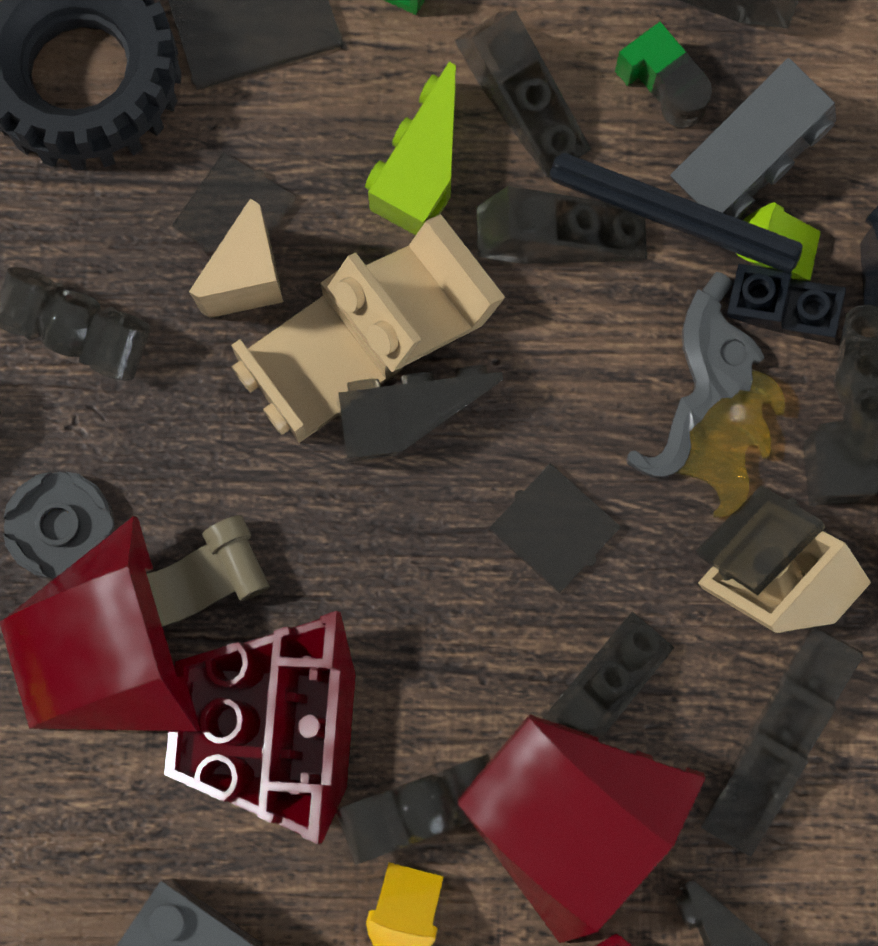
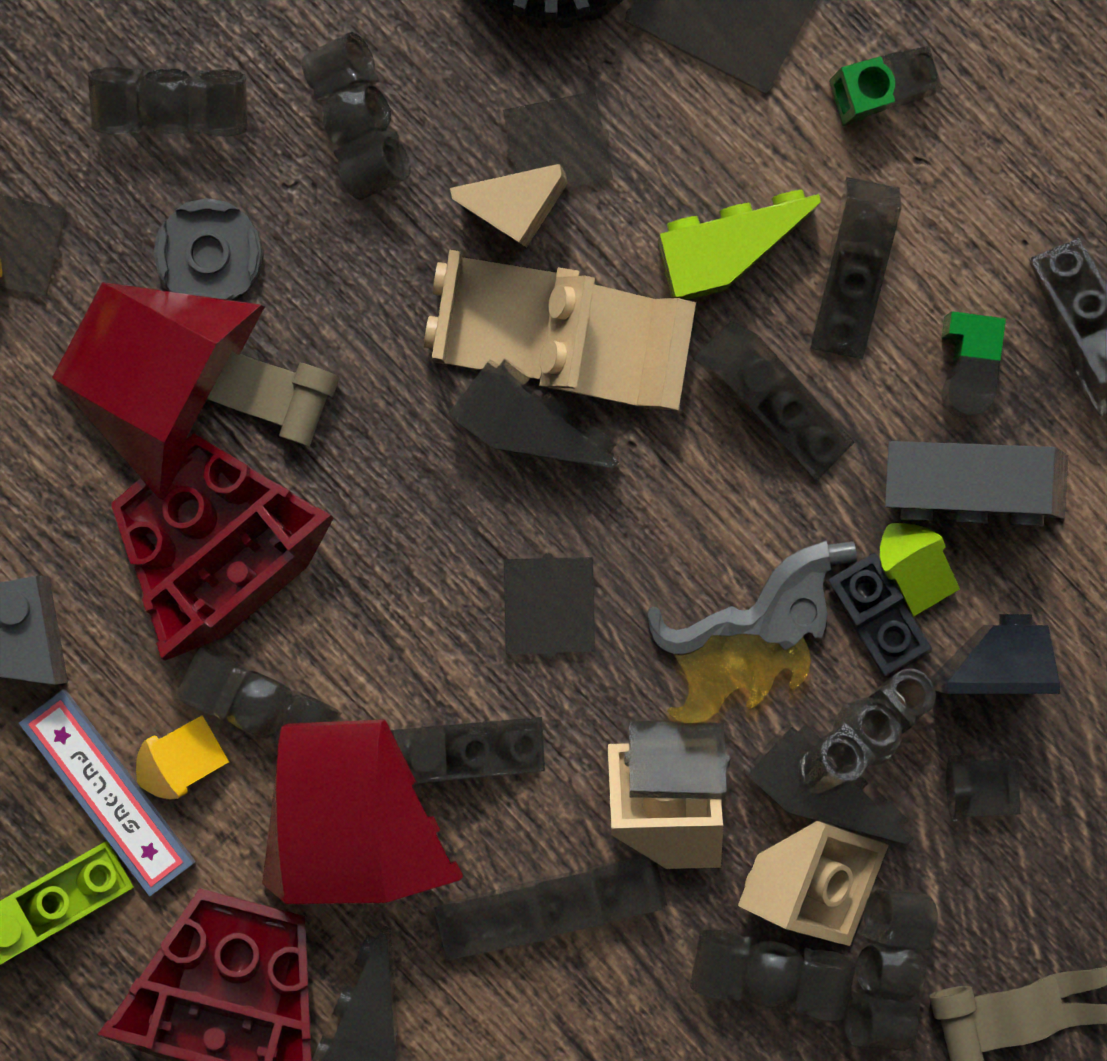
camera: 45 degrees right, 10 degrees up
(676, 212) = (863, 472): black axle -> none

